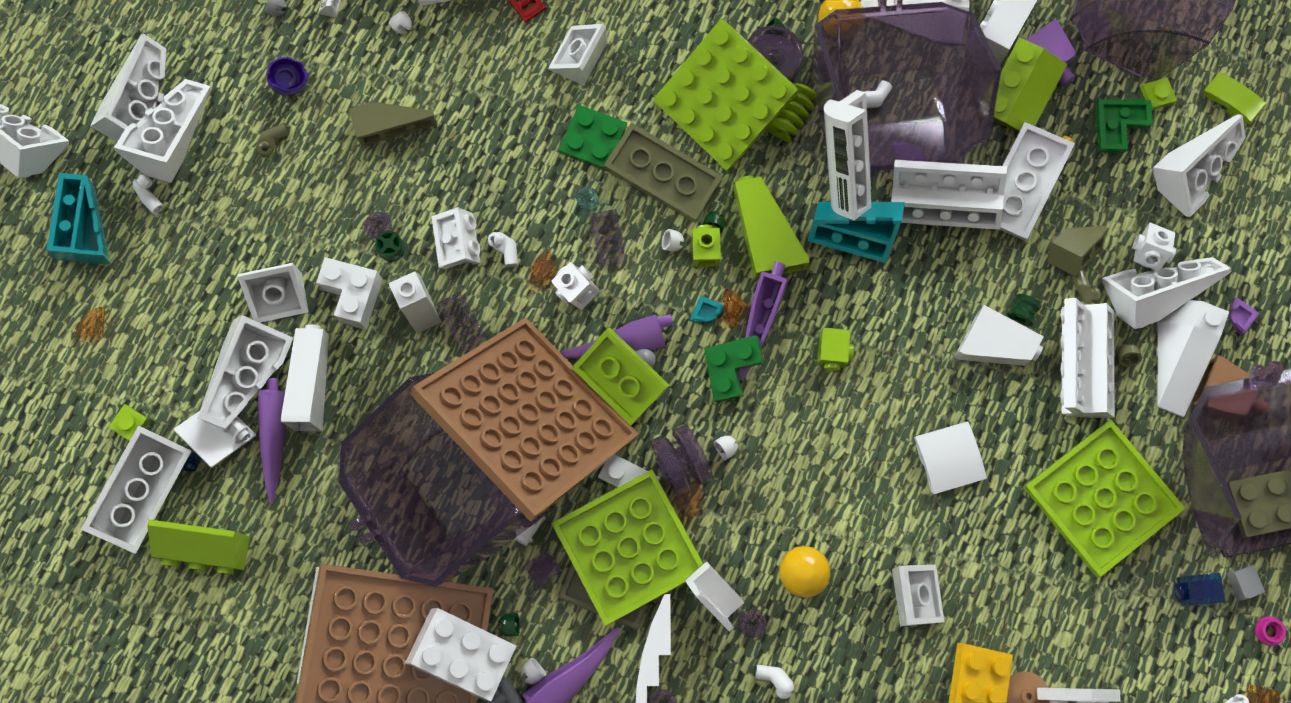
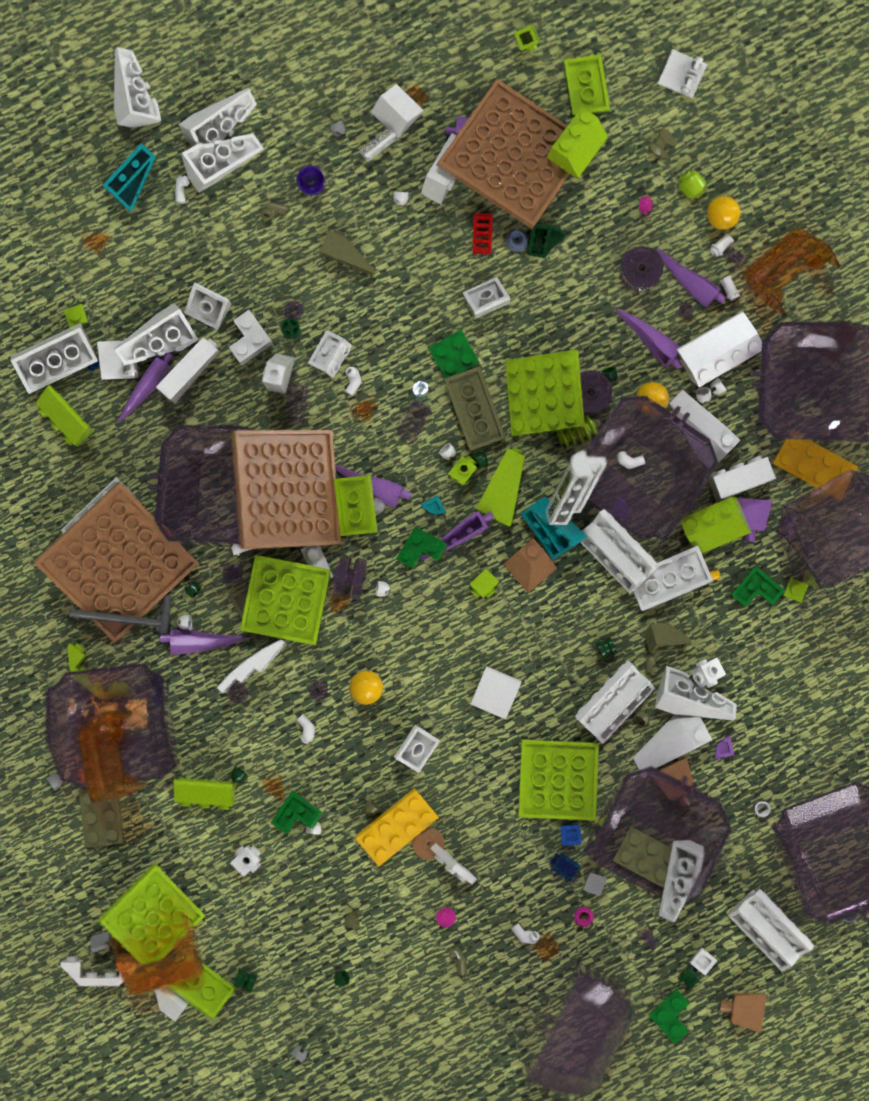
camera: 35 degrees right, 10 degrees up
(460, 654) = (154, 584): white brick -> none
(575, 285) = (372, 435): white brick -> none
(715, 593) = (309, 661): white panel -> none
(732, 307) = (449, 516): clear orange tile -> none
(864, 288) = (530, 565): none -> medium nougat slope
(999, 340) = (577, 653): white slope -> none
(1172, 548) = (570, 834): none -> blue plate
(1191, 167) = (771, 646): white wedge -> none
(1235, 97) = (835, 628): lime slope -> none

